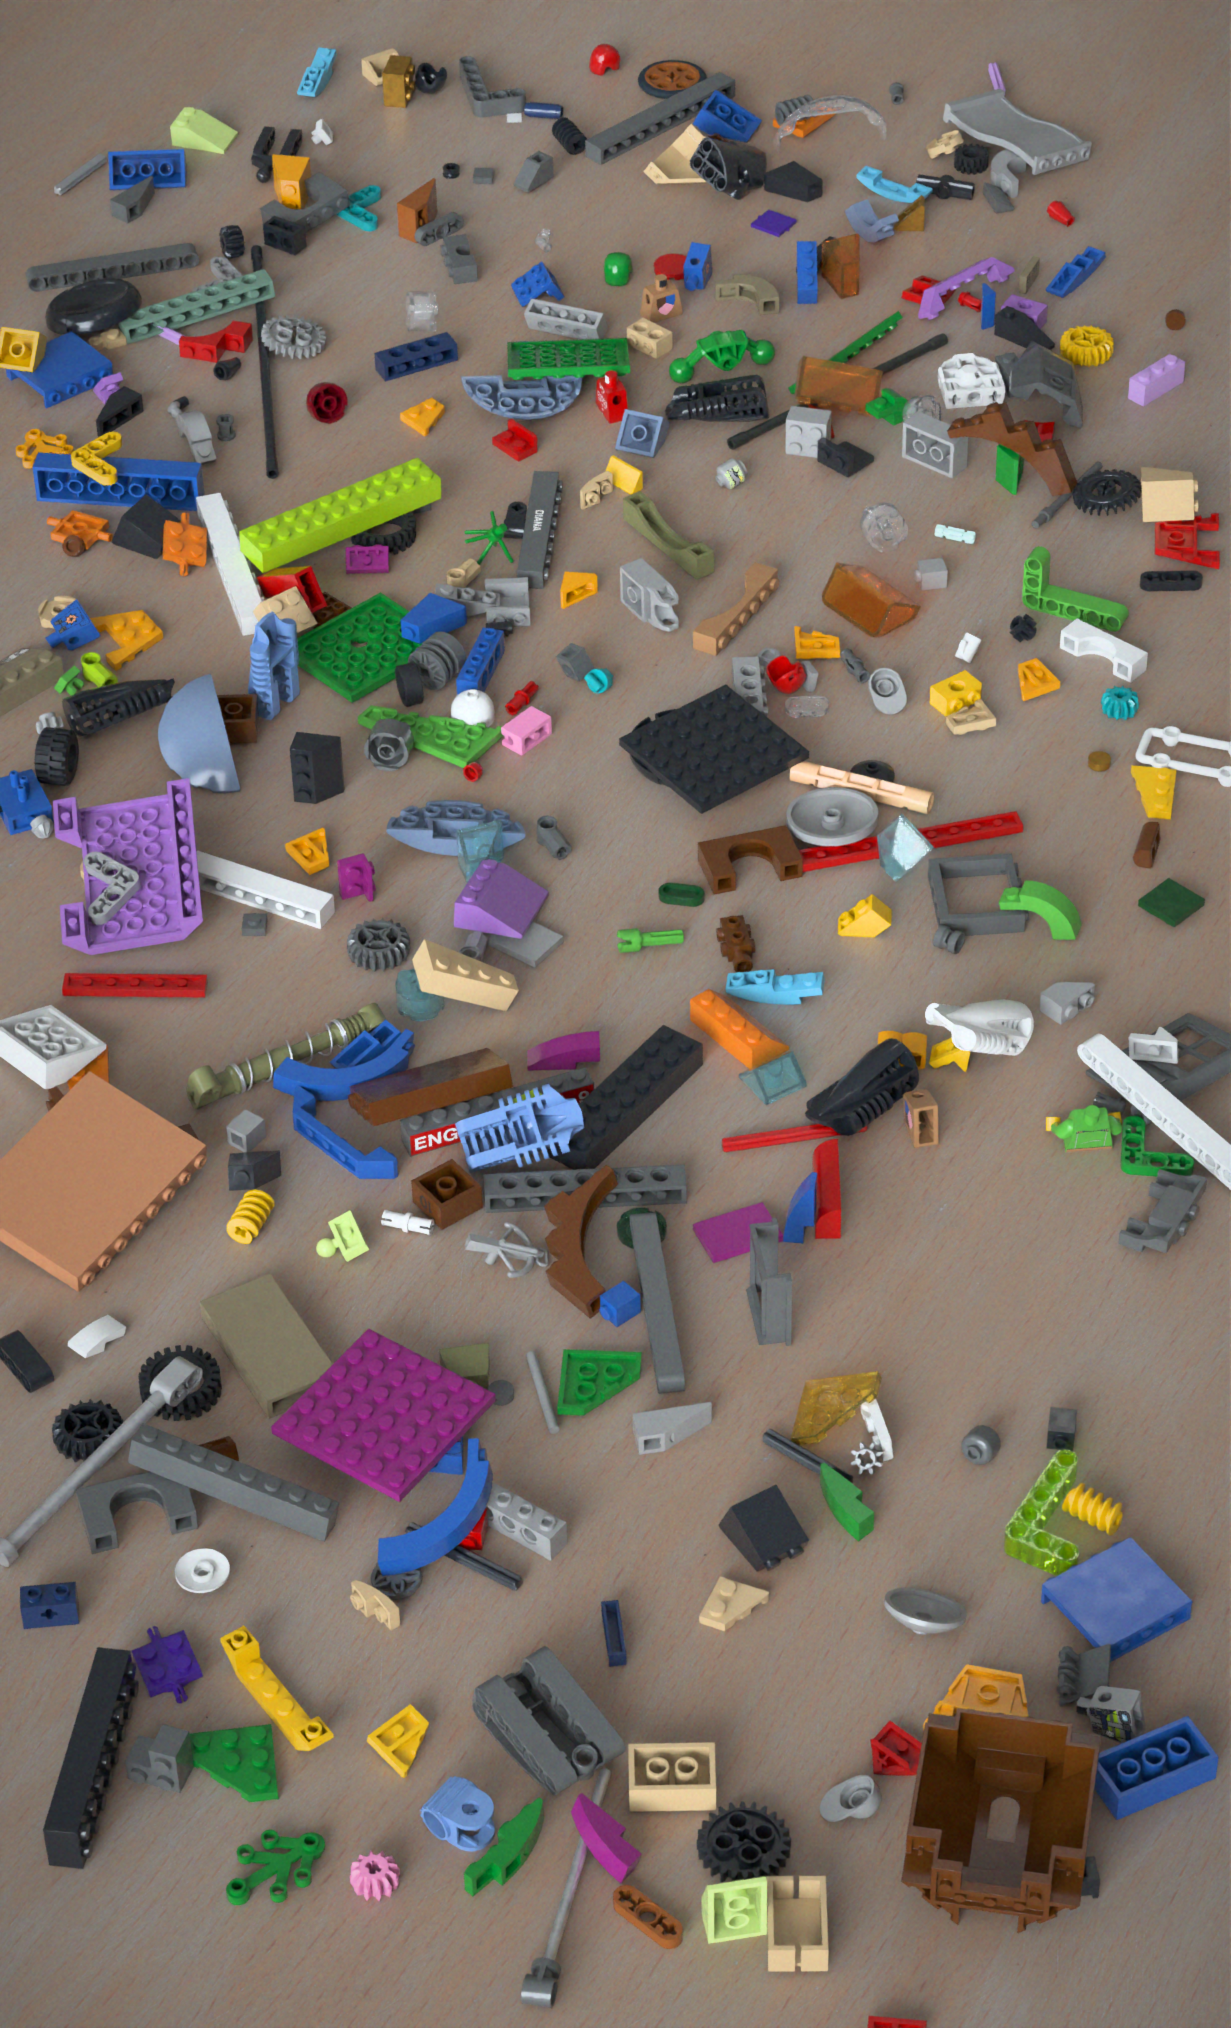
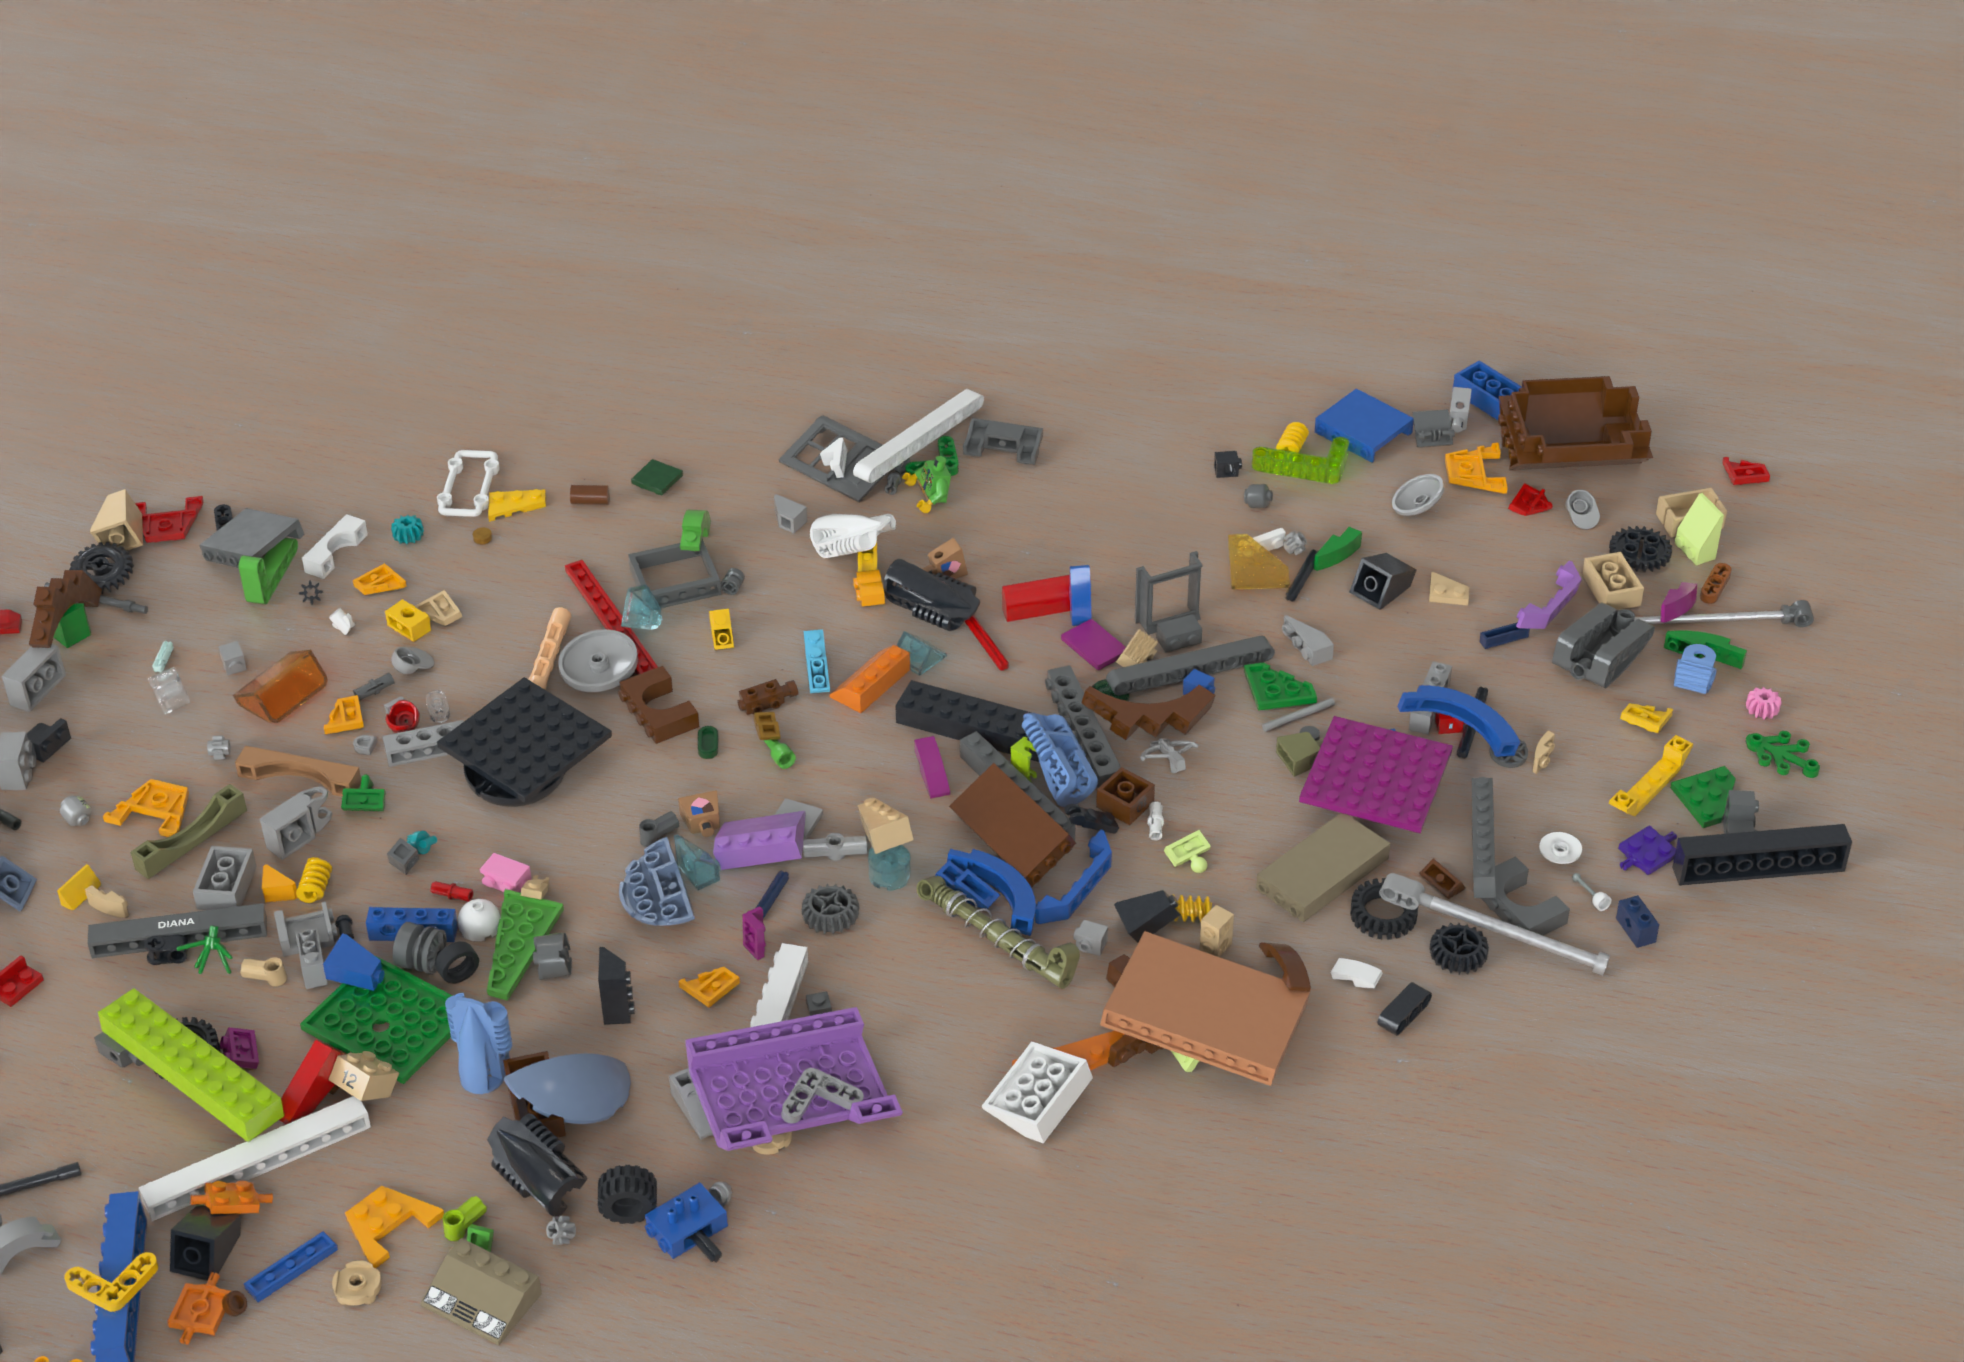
camera: 105 degrees left, 0 degrees up
(72, 627) = (393, 1254): blue torso -> none
(102, 581) = (290, 1266): none -> blue tile
(106, 1586) = (1600, 899): none -> white hinge
(125, 1263) = (1295, 973): none -> reddish brown slope
(135, 985) = (929, 1062): red plate -> none
(196, 1220) = (1216, 931): none -> tan brick
(418, 1153) = (1091, 819): none -> black hinge
(423, 910) = (773, 891): none -> dark blue axle
(474, 773) = (569, 901): red hinge -> none
(496, 746) = (535, 888): none -> tan plate
(561, 871) = (700, 812): none -> medium nougat torso
(570, 610) = (314, 880): none -> yellow piece
(590, 552) = (224, 878): none -> light grey brick
(657, 1709) = (1537, 618): none -> medium lavender slope
(665, 927) = (766, 726): none -> pearl gold slope
(678, 646) = (364, 798): none -> green plate
(696, 1256) = (1138, 650): none -> tan brick
(724, 1307) = (1179, 633): none -> dark grey brick
(727, 526) = (156, 800): none -> light orange wing
(790, 559) = (219, 747): none -> light grey gear
(874, 769) = (519, 659): black dish -> none
(1124, 584) = (249, 535): none -> panel

